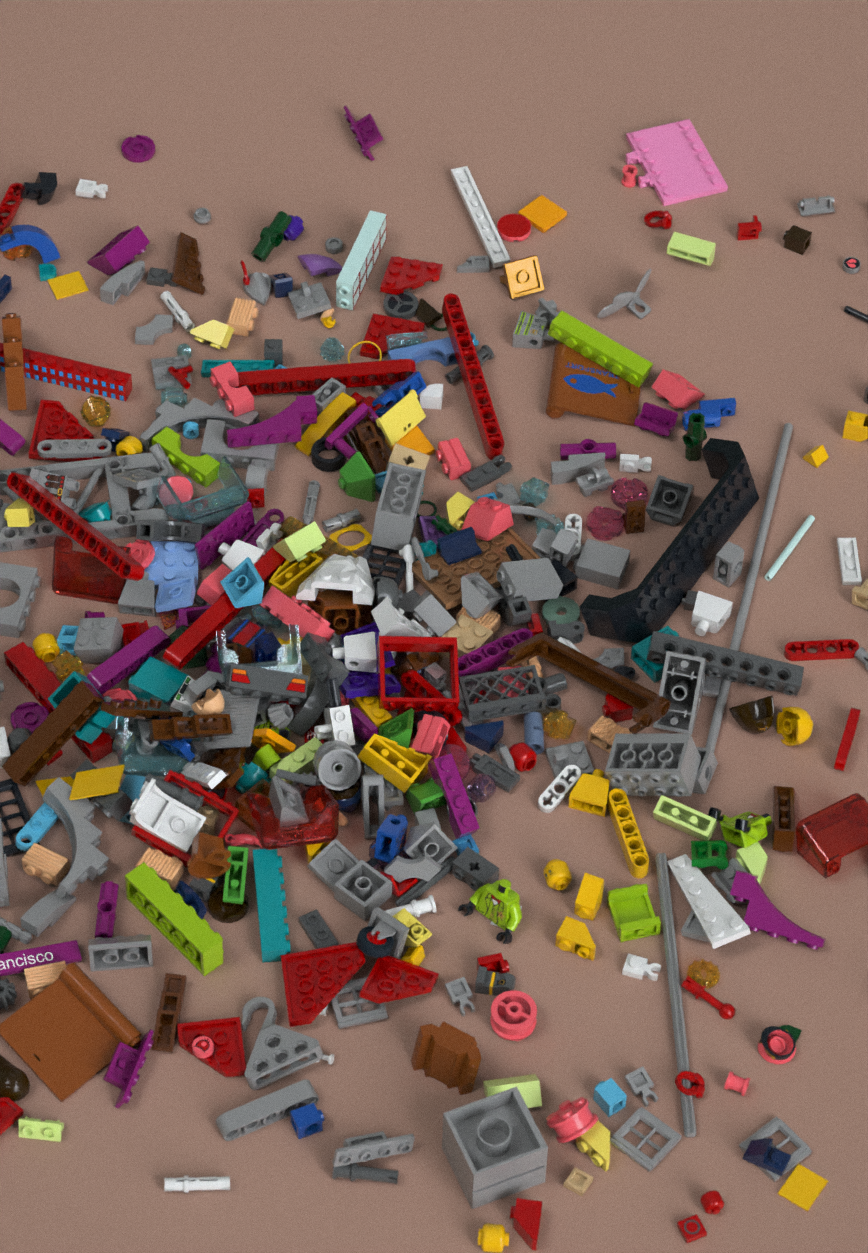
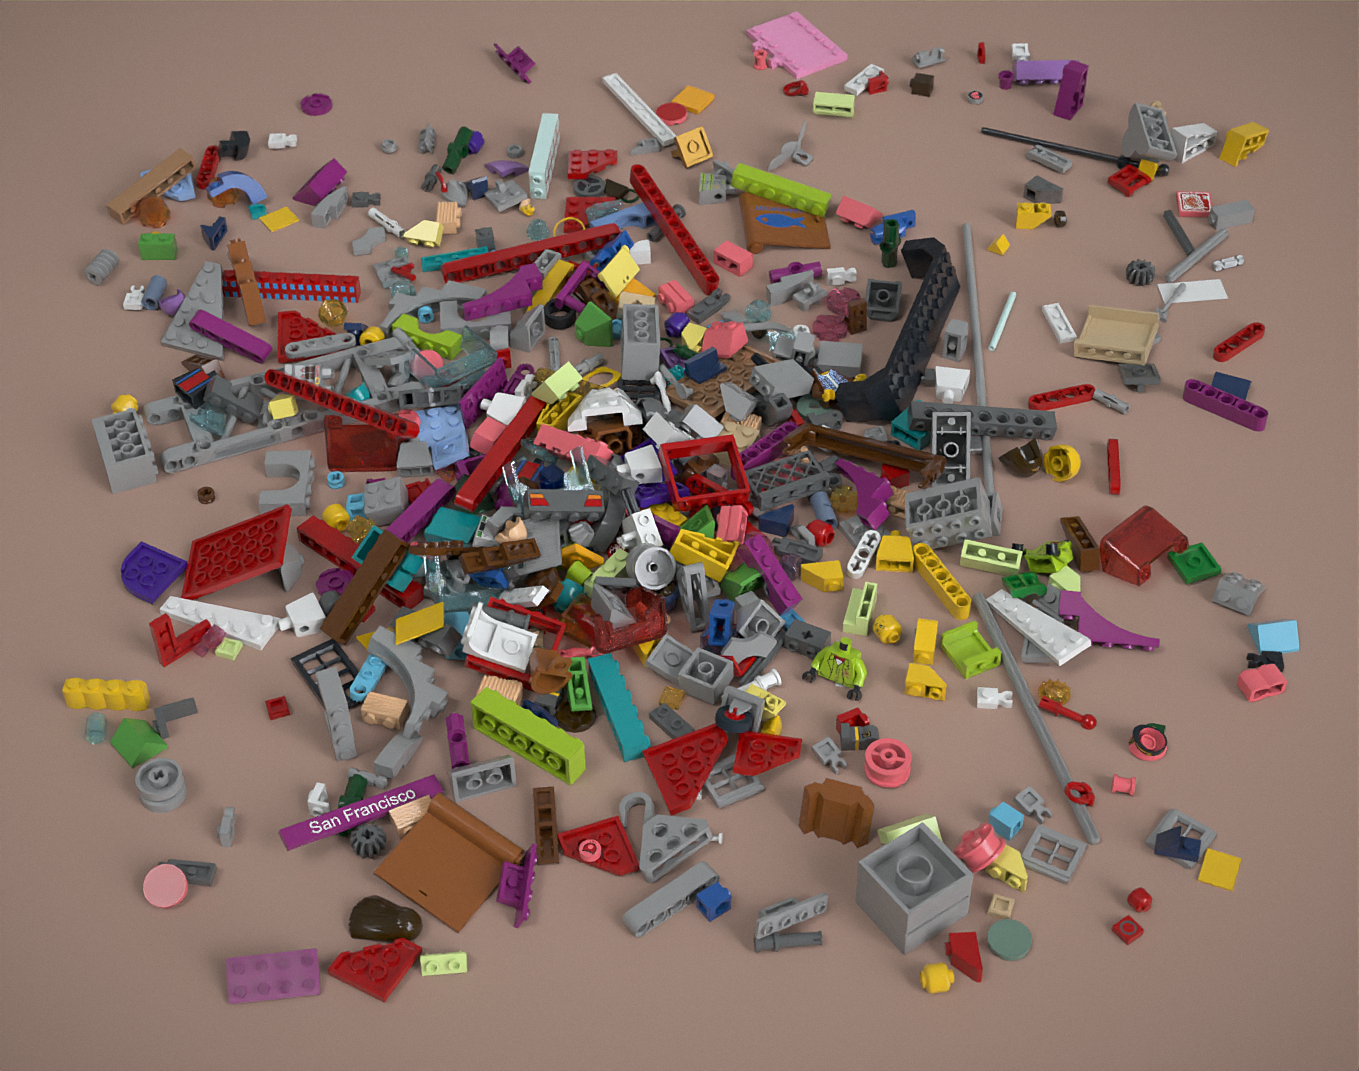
camera: 10 degrees left, 5 degrees down
(57, 599) = (336, 480): none -> medium azure bush
(186, 264) = (385, 186): reddish brown wing -> none
(196, 1183) = (613, 986): white pin -> none
(235, 264) = (430, 178): none -> dark grey pin
(236, 399) = (449, 267): coral arch -> none
(244, 215) = (427, 139): none -> light grey hinge
(244, 585) = (516, 427): medium azure slope -> none
(290, 469) = (528, 330): none -> light grey slope
(326, 905) = (672, 697): none -> clear yellow tile
(445, 489) = (676, 324): none -> dark purple head
(512, 804) = (823, 575): none -> yellow slope
(527, 421) = (733, 258): none -> coral brick
(538, 848) = (860, 609): none -> yellowish green piece
(575, 1215) = (1009, 939): none -> sand green tile
(577, 590) = (826, 384): none -> torso
(583, 725) = (871, 493): none -> magenta arch
(656, 419) = (848, 237): magenta bracket -> none
(729, 224) = (860, 82): none -> white plate

